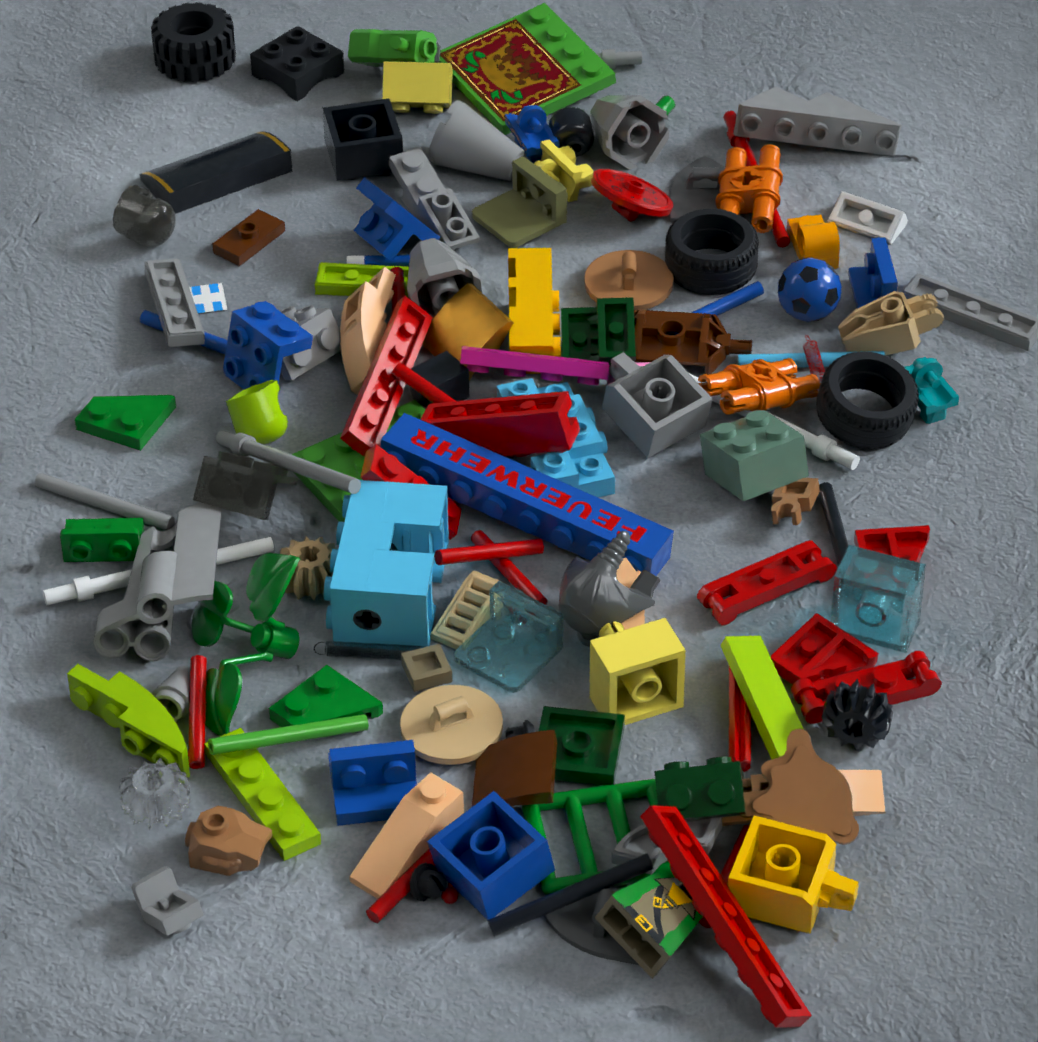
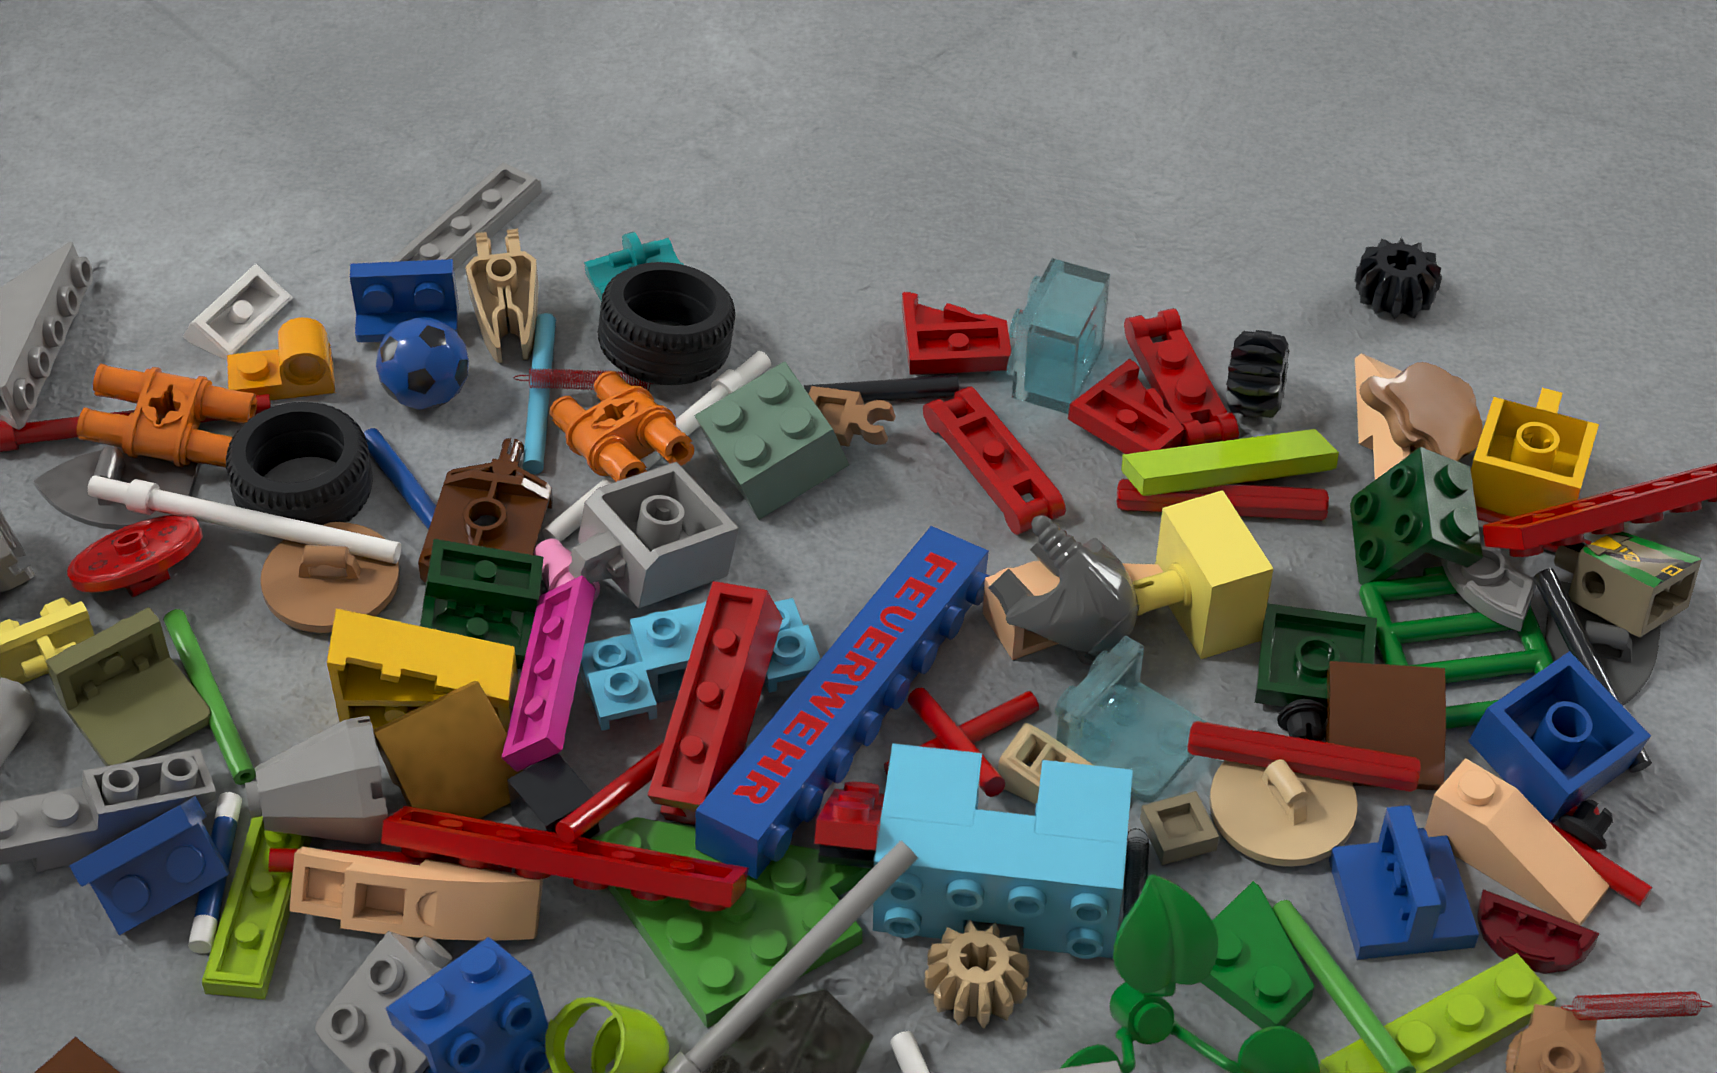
camera: 90 degrees left, 5 degrees up
(263, 841) = (1616, 1007): none -> red piece
(340, 849) = (1537, 937): none -> dark red tile
(479, 725) = (1304, 756): none -> red axle
(540, 241) = (205, 684): none -> bright green piece
(676, 192) = (147, 497): none -> white bar
(999, 819) = (1398, 278): none -> black gear

